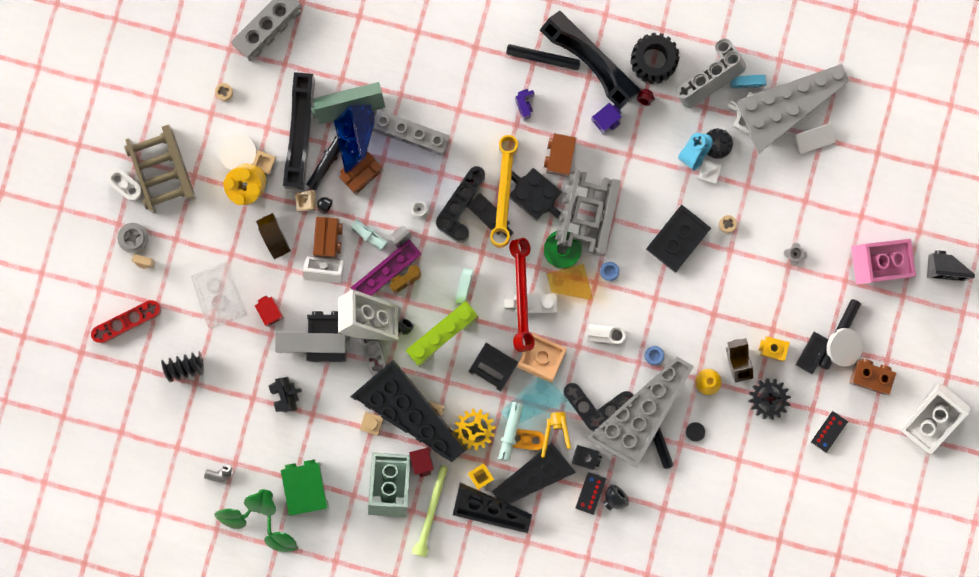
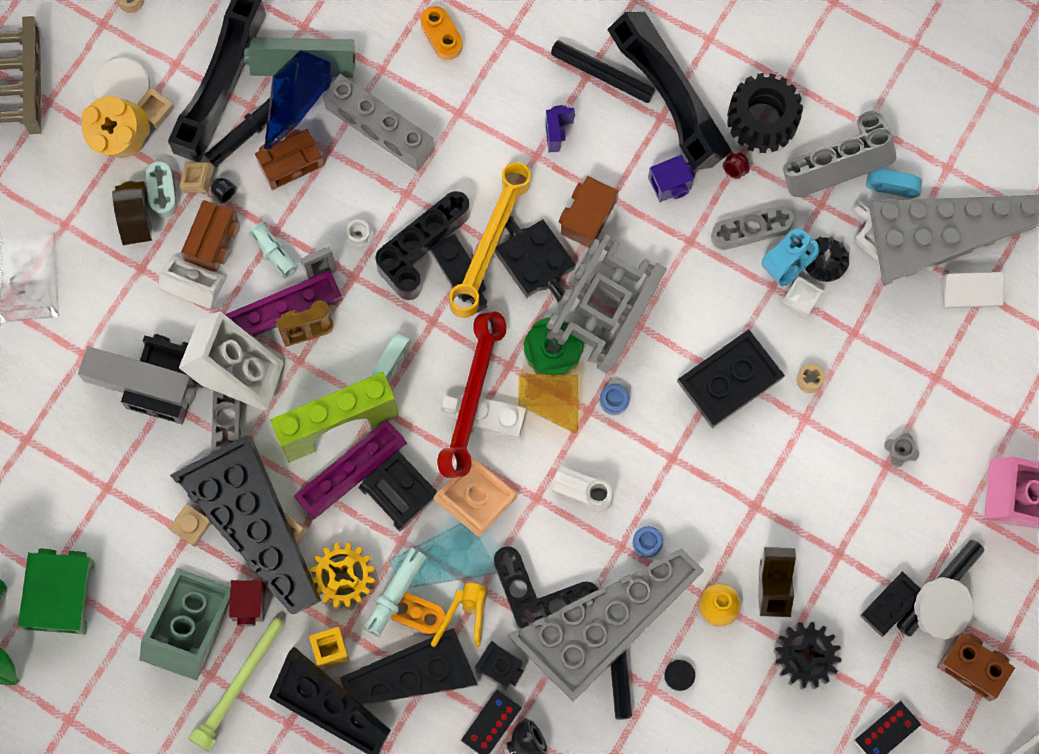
camera: 10 degrees right, 10 degrees down
(268, 310) = (90, 317): red brick -> none
(287, 394) = (77, 445): black hips -> none
(289, 212) = (155, 190): none -> light aqua beam
(405, 326) = (284, 395): black hinge -> none
(431, 59) = (440, 31): none -> light orange plate
(460, 362) = (350, 469): none -> magenta plate
(675, 124) = (729, 226): none -> light grey beam
(779, 354) = (838, 591): yellow brick -> none

